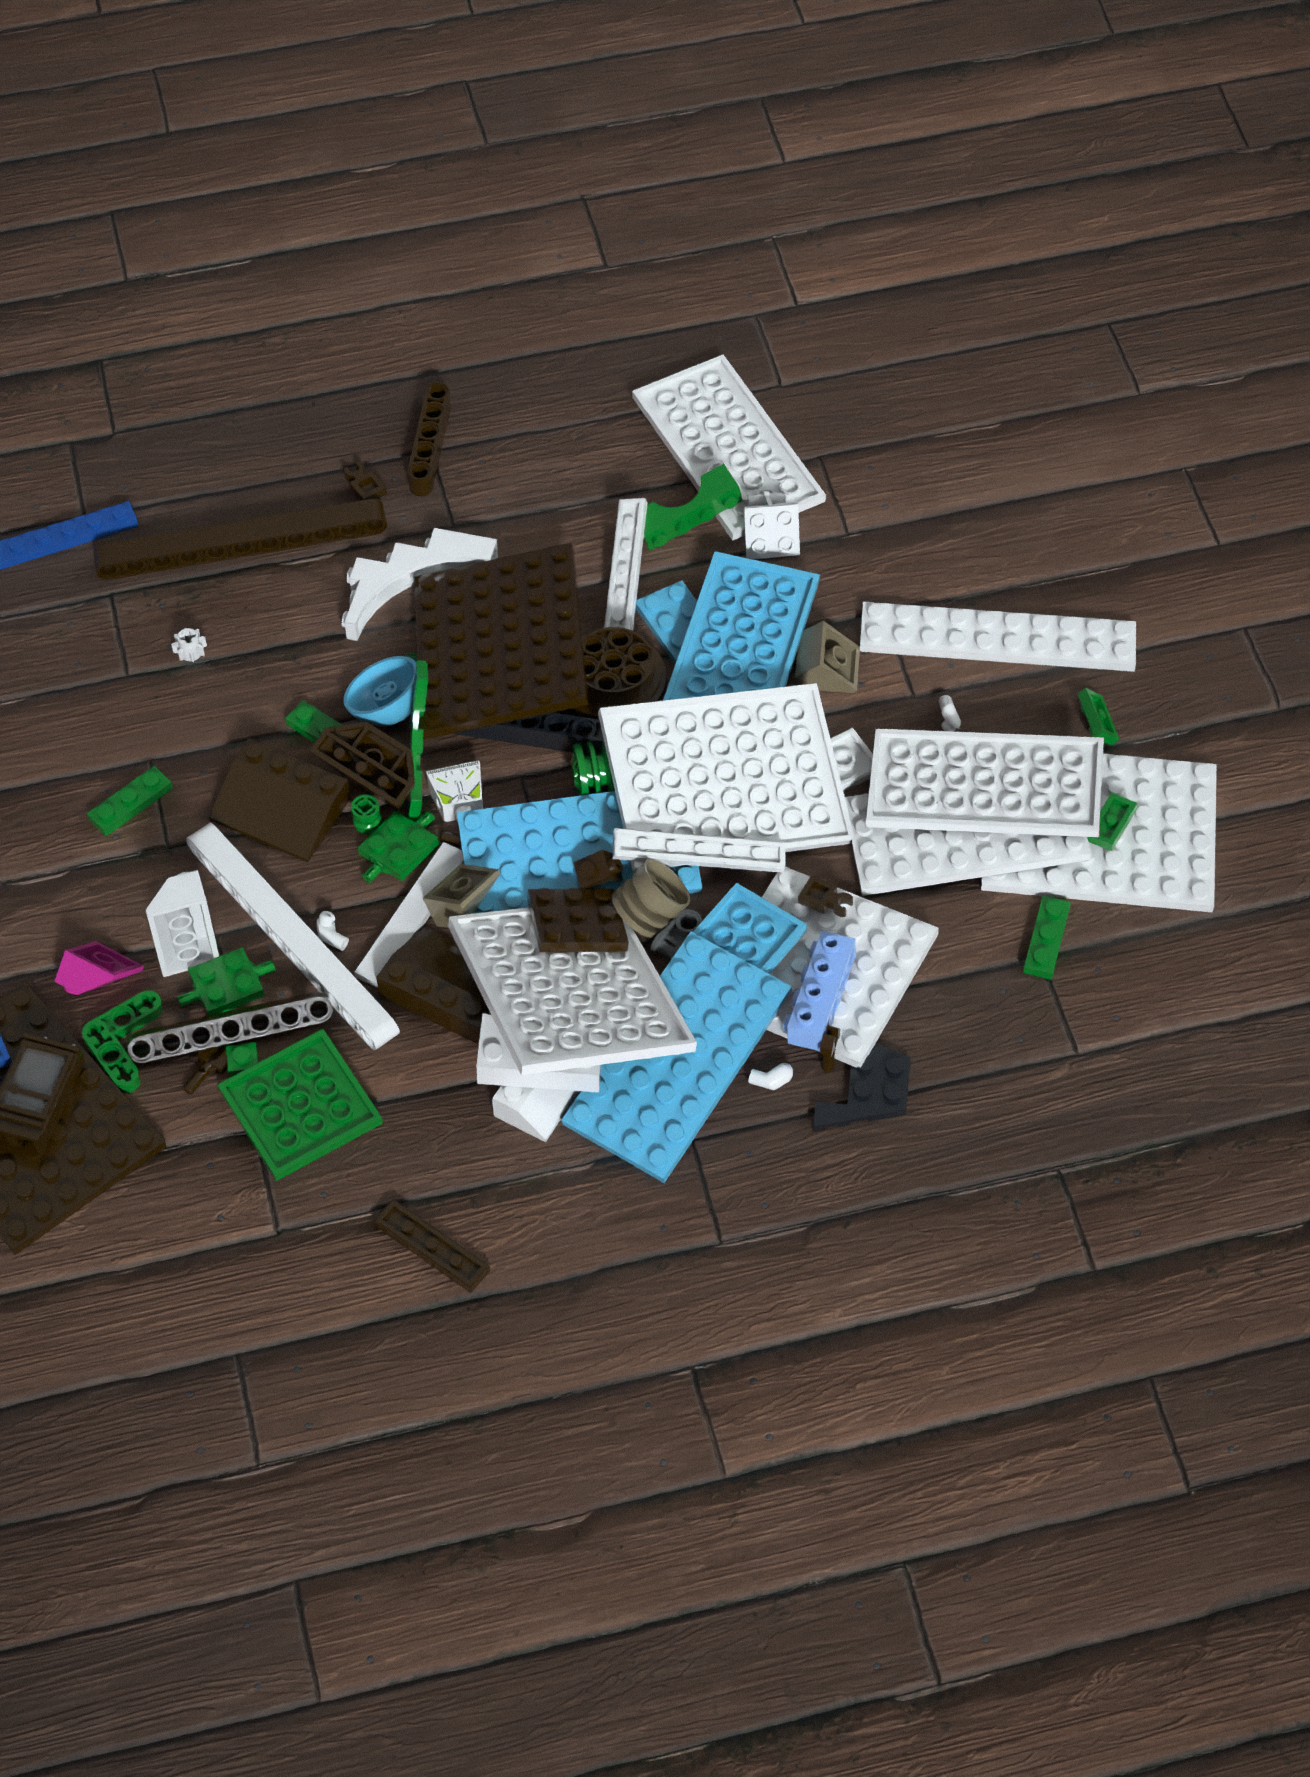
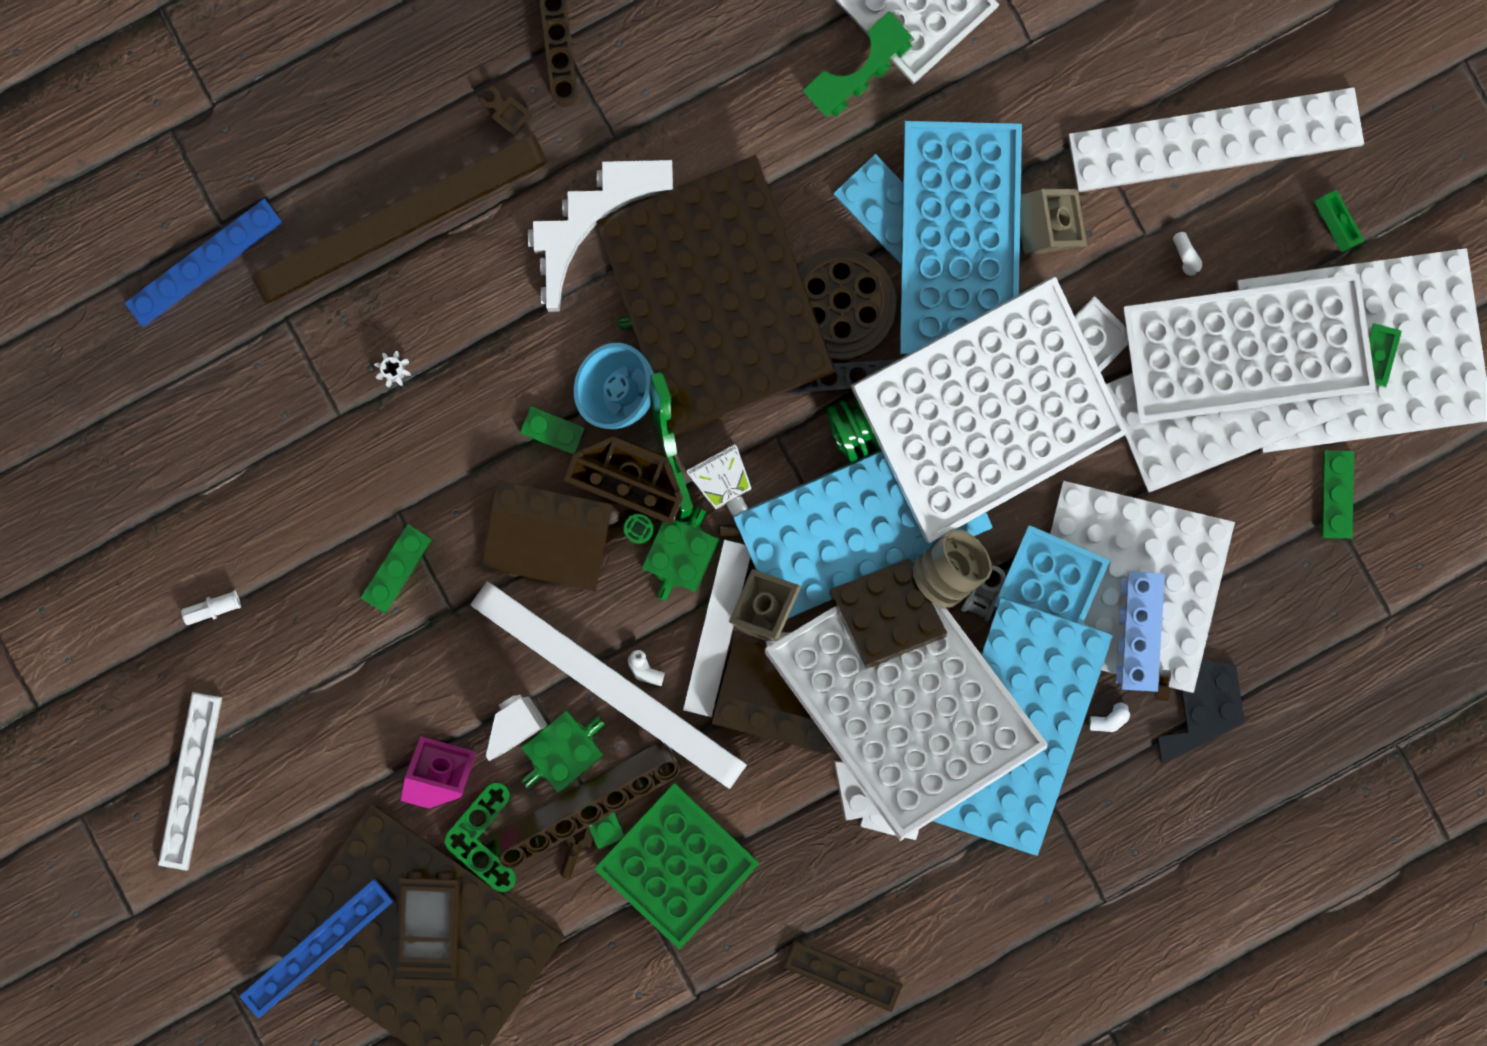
camera: 20 degrees left, 30 degrees up
(598, 869) = (891, 546): dark brown bracket -> none
(626, 563) = (815, 163): white tile -> none
(699, 850) = (985, 504): white tile -> none
(771, 528) = (955, 71): white plate -> none
(823, 895) = (1114, 519): dark brown plate -> none

